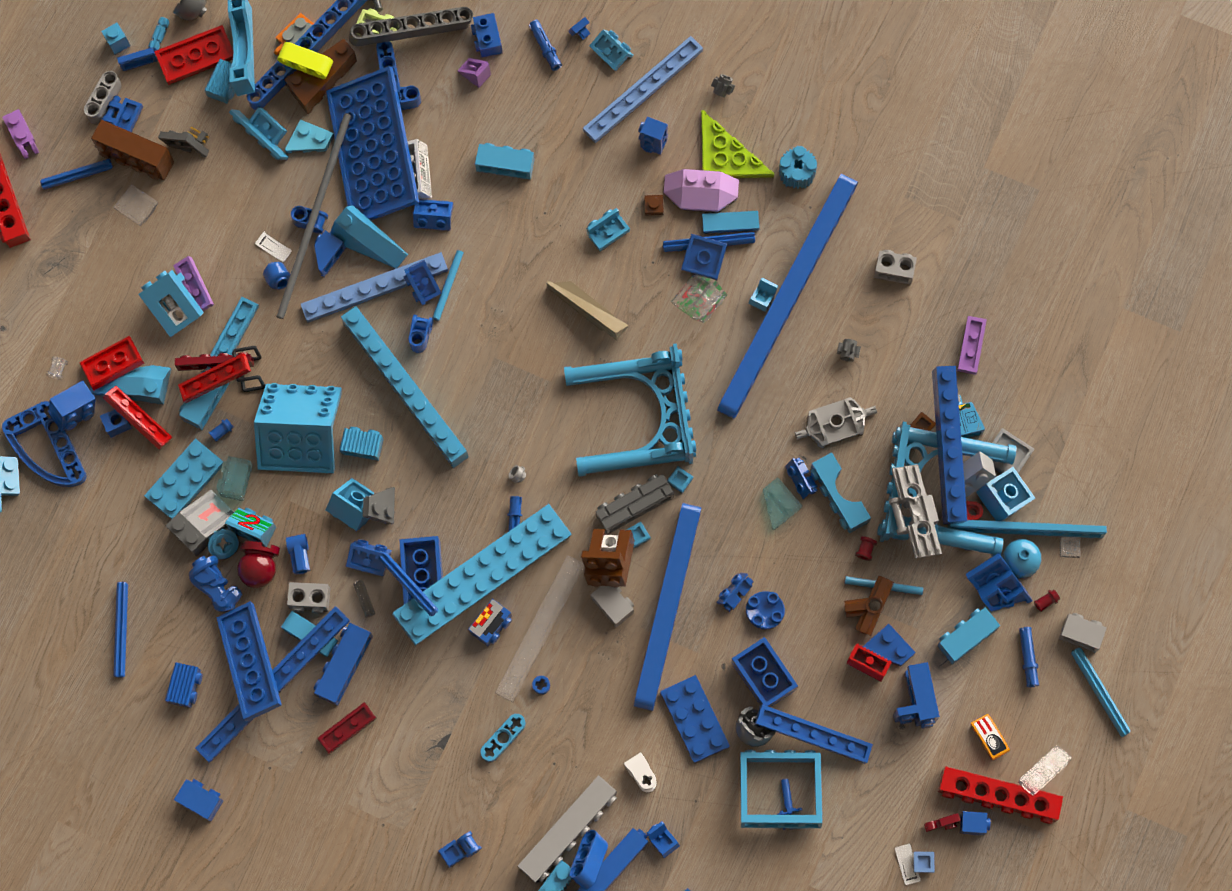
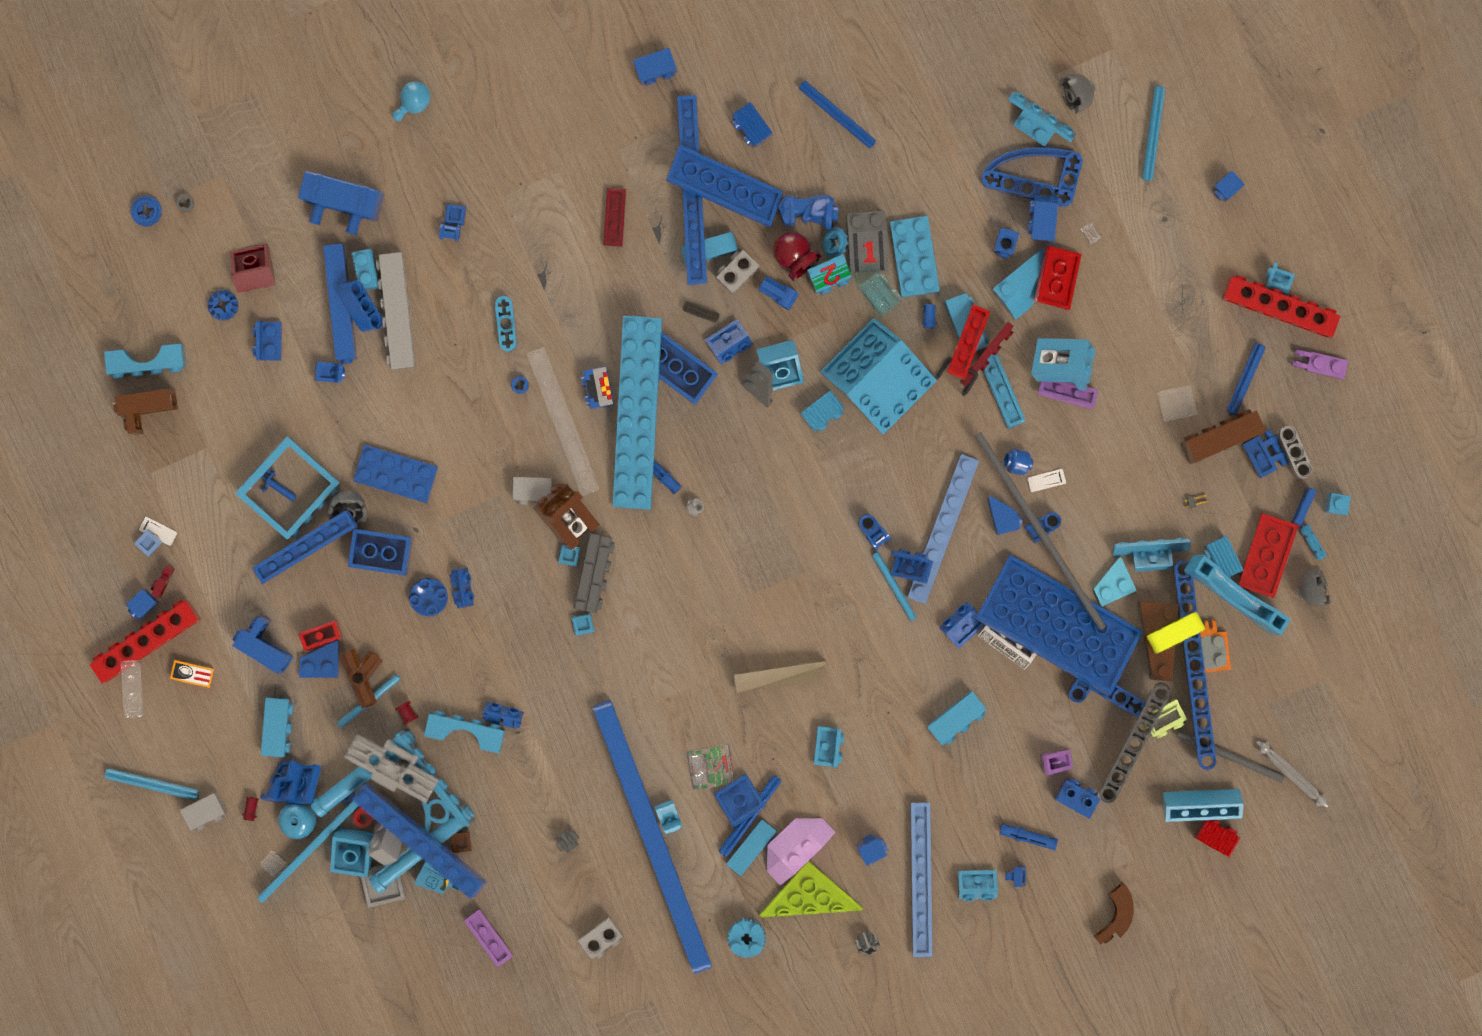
camera: 125 degrees right, 15 degrees up
(137, 417) = (993, 260): red tile -> none
(182, 141) = (1196, 483): dark grey wing -> none
(343, 664) = (663, 254): blue brick -> none
(366, 238) = (988, 556): dark azure wedge -> none
(404, 387) = (839, 481): dark azure brick -> none
(408, 584) = (674, 349): blue axle -> none
(639, 770) = (393, 400): white piece -> none
(654, 205) = (818, 801): reddish brown plate -> none
(658, 363) = (623, 614): dark azure arch -> none
(667, 607) = (495, 528): blue beam -> none
(780, 503) = (498, 682): clear light blue wing -> none
(824, 432) = (524, 764): light grey plate -> none
(1030, 665) = (222, 756): blue pin -> none

